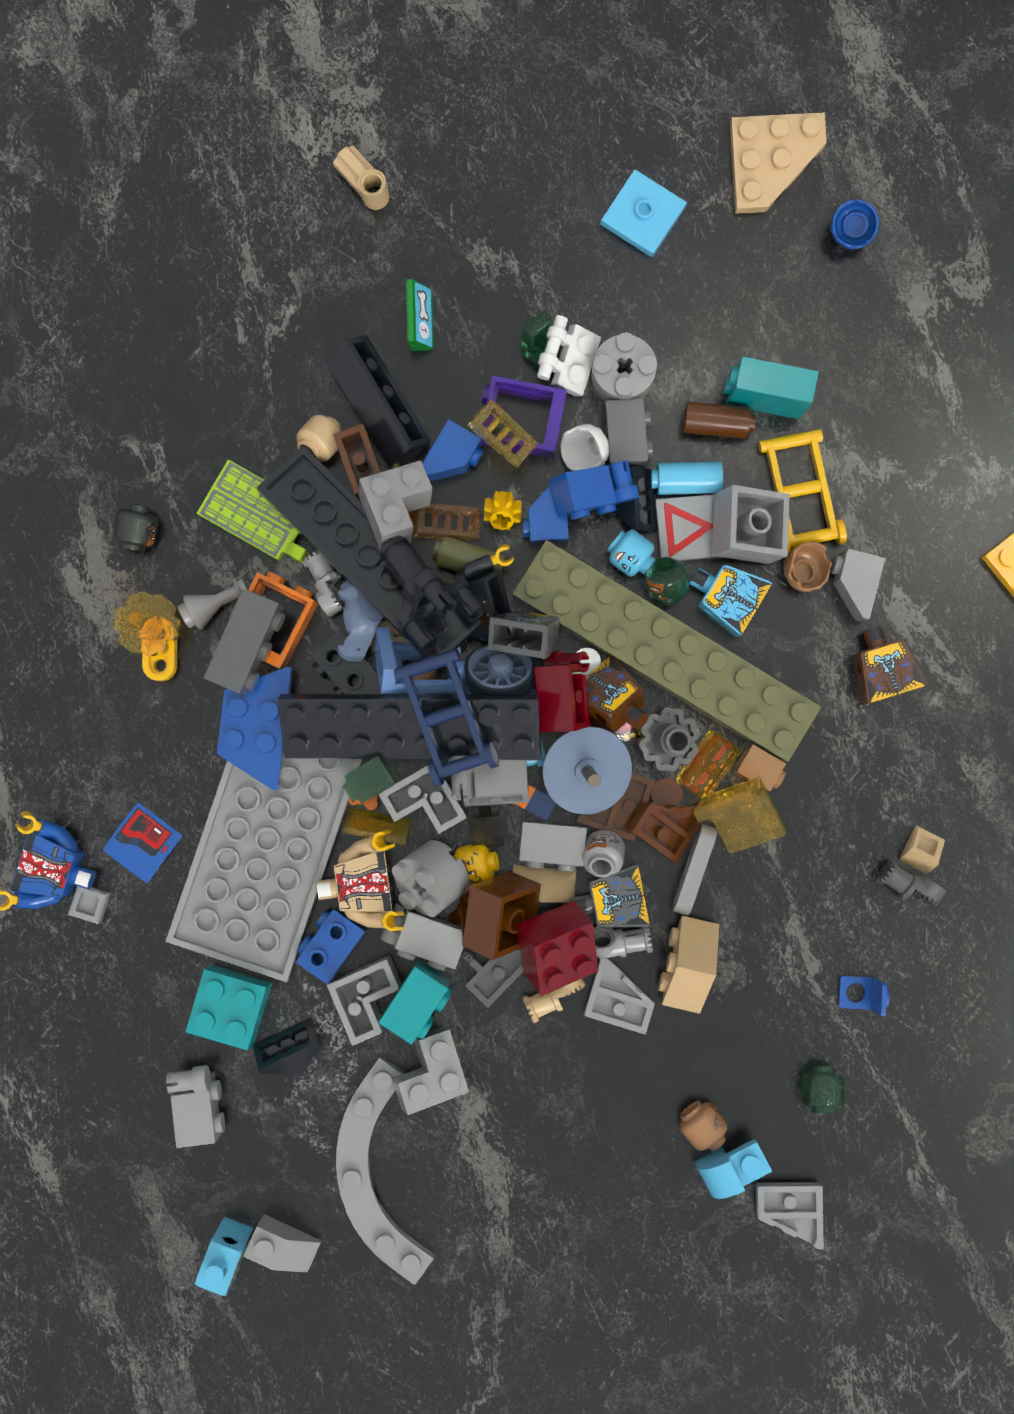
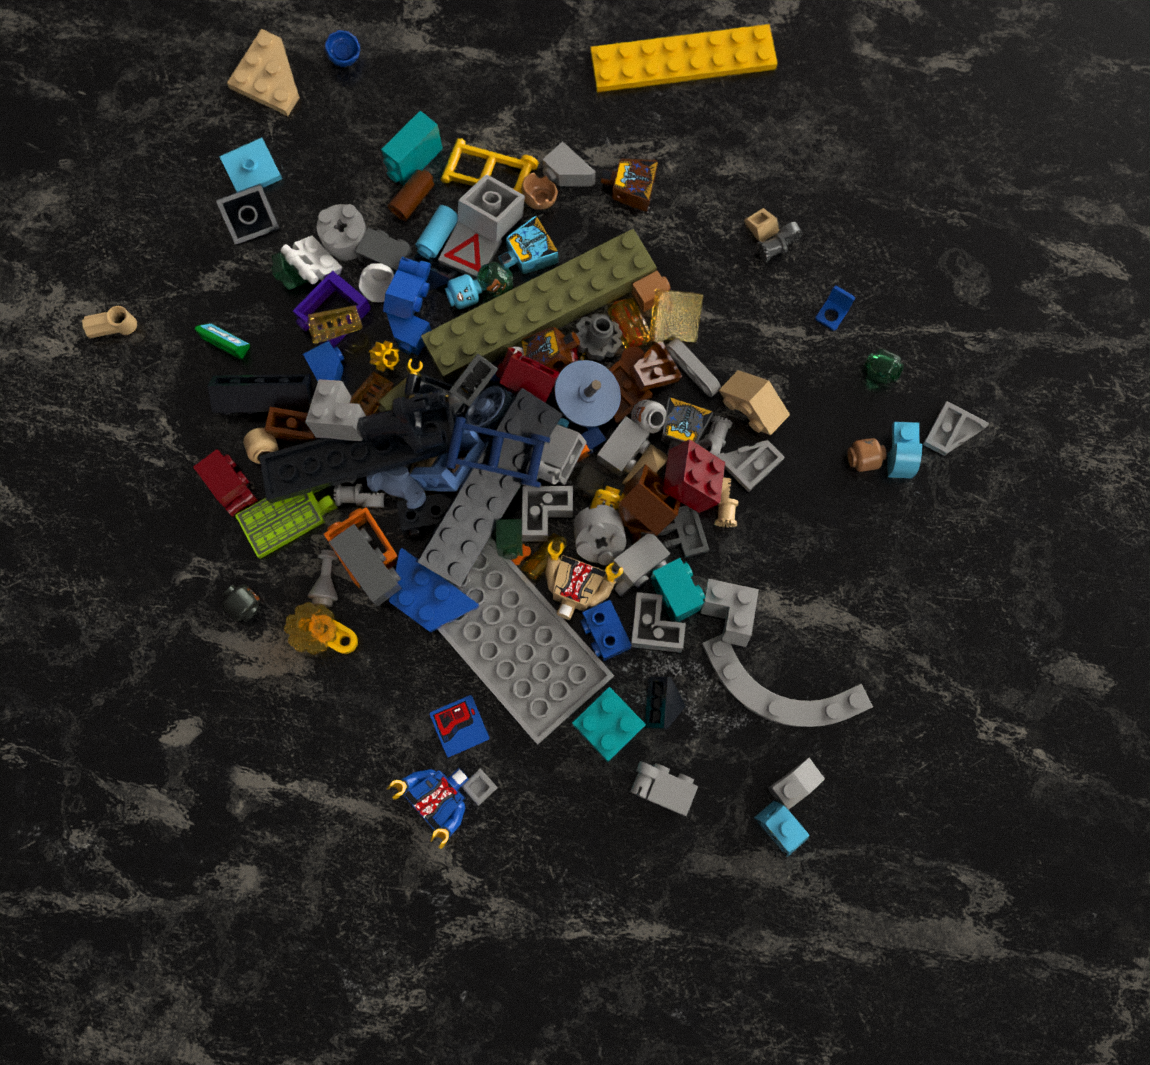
camera: 65 degrees left, 10 degrees down
(255, 426) = (224, 482): none -> dark red hinge
(581, 248) = (247, 213): none -> black slope

